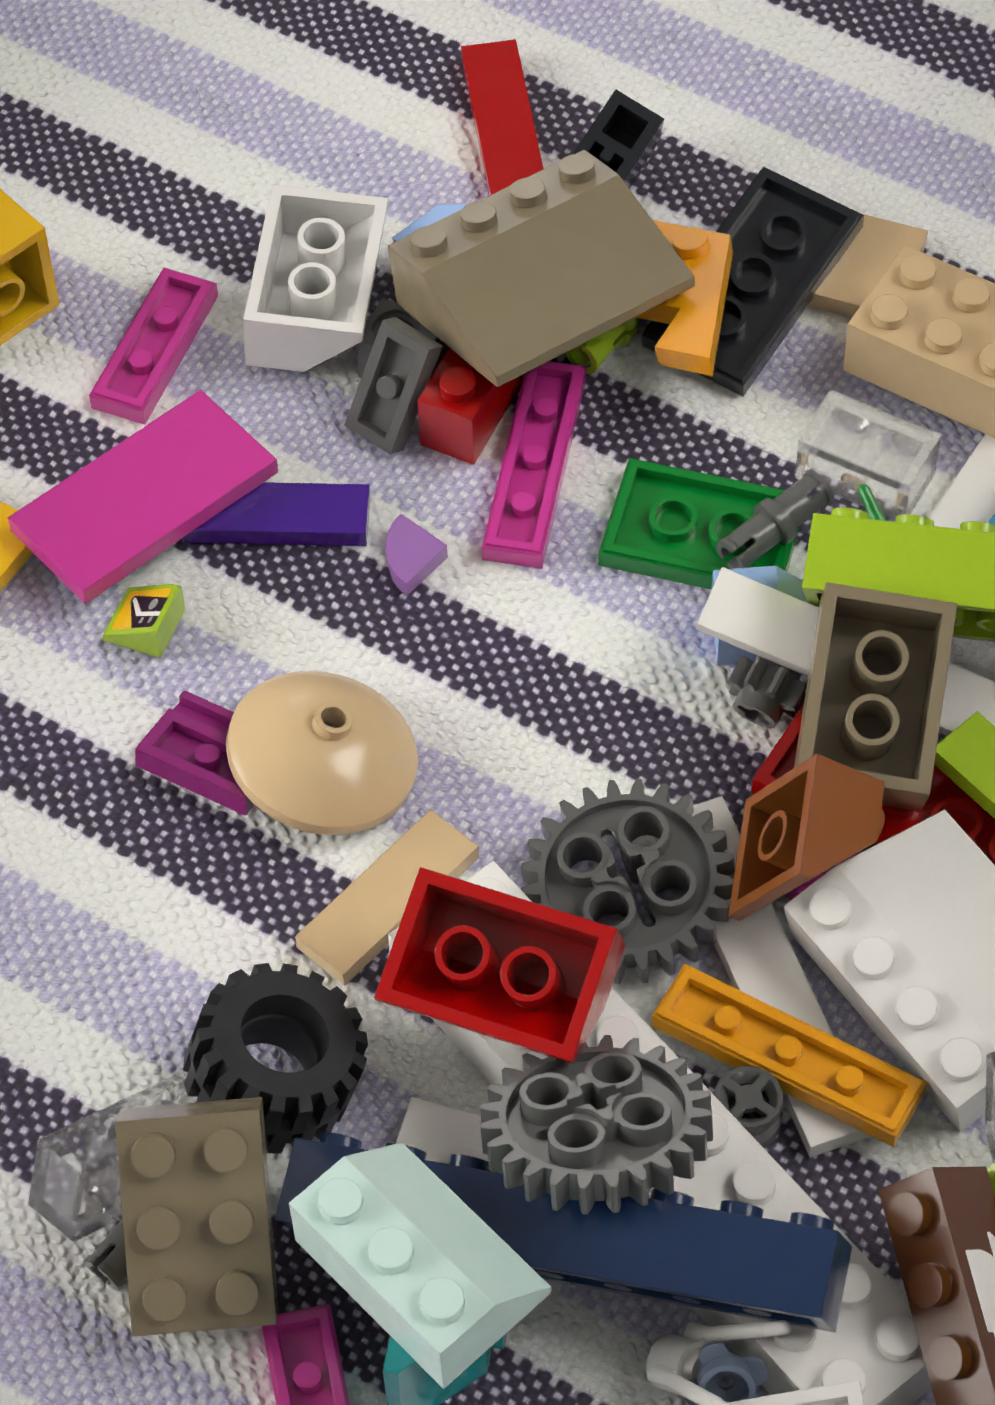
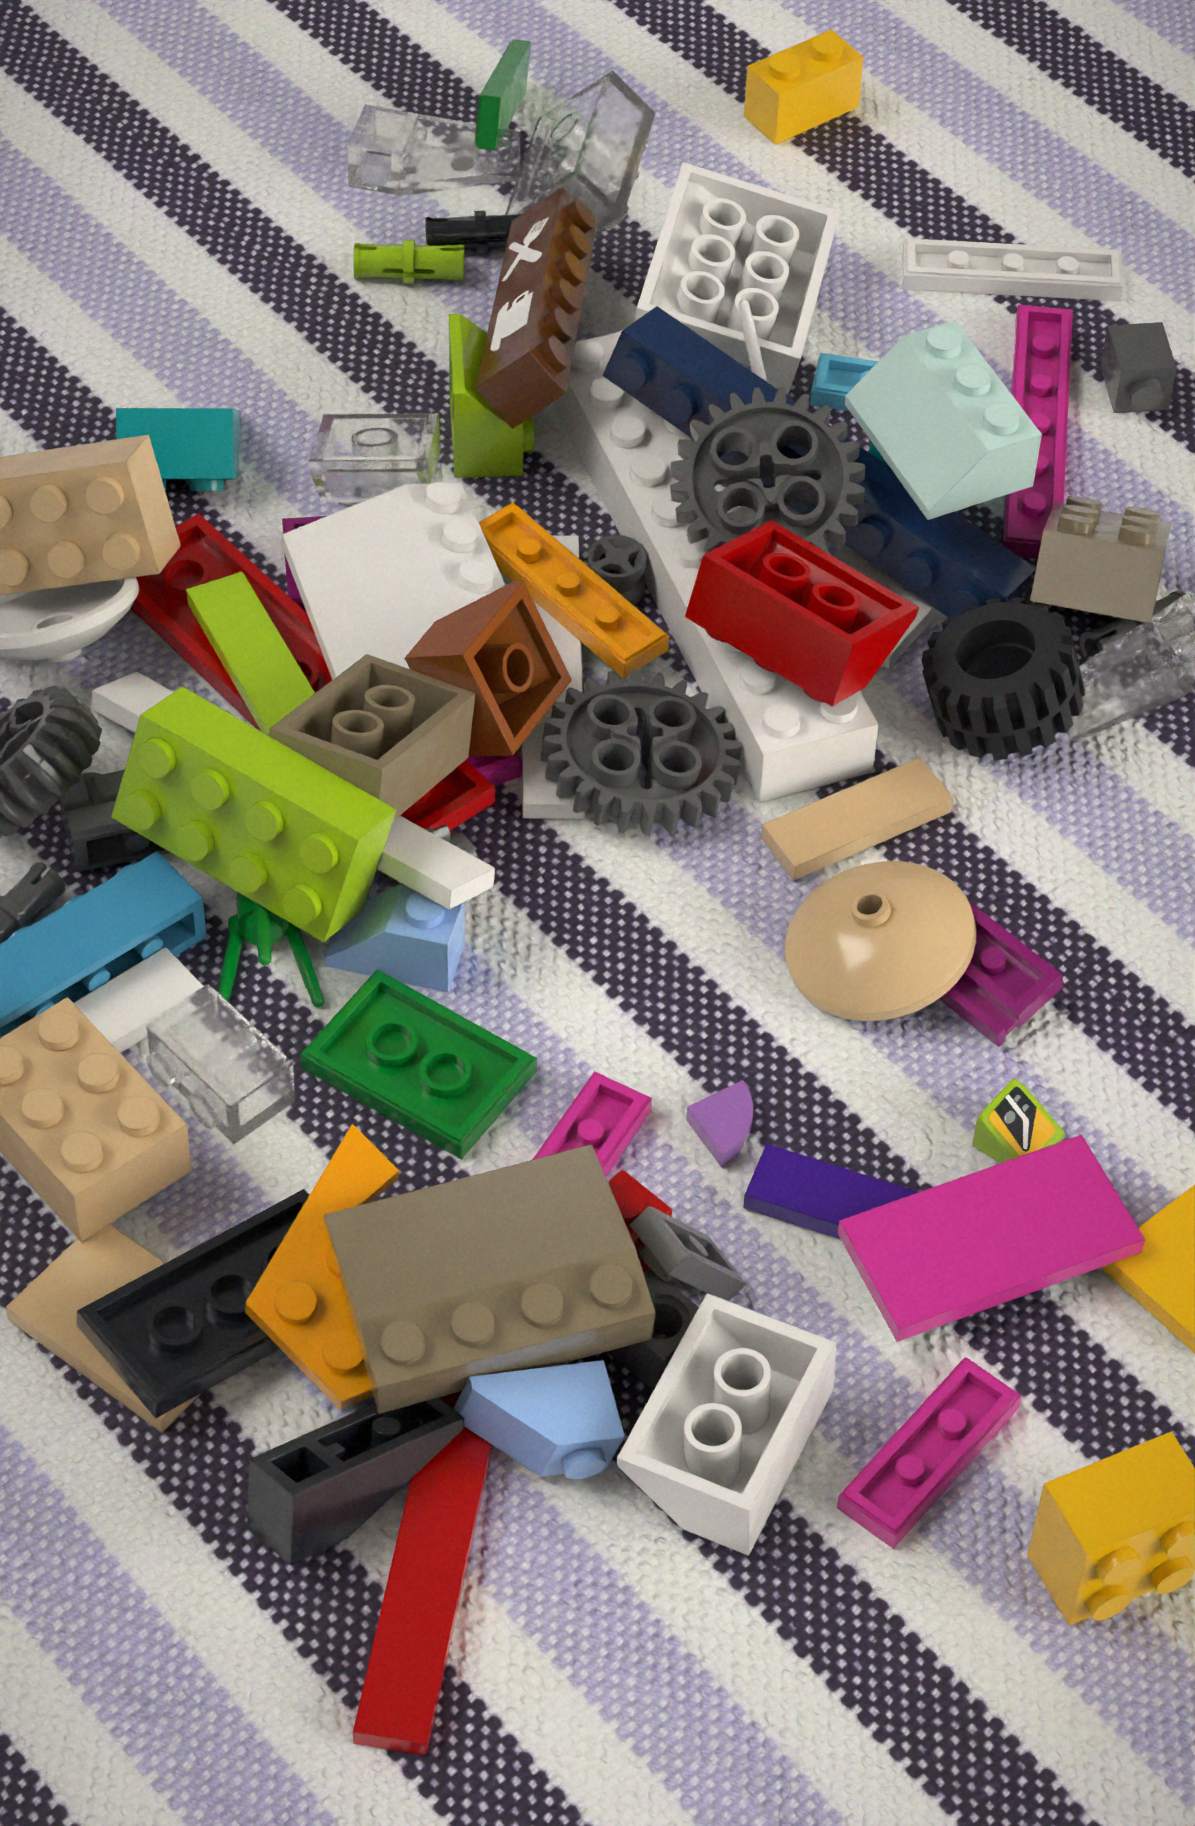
camera: 165 degrees left, 5 degrees down
(775, 521) = (354, 1003): dark grey pin -> none

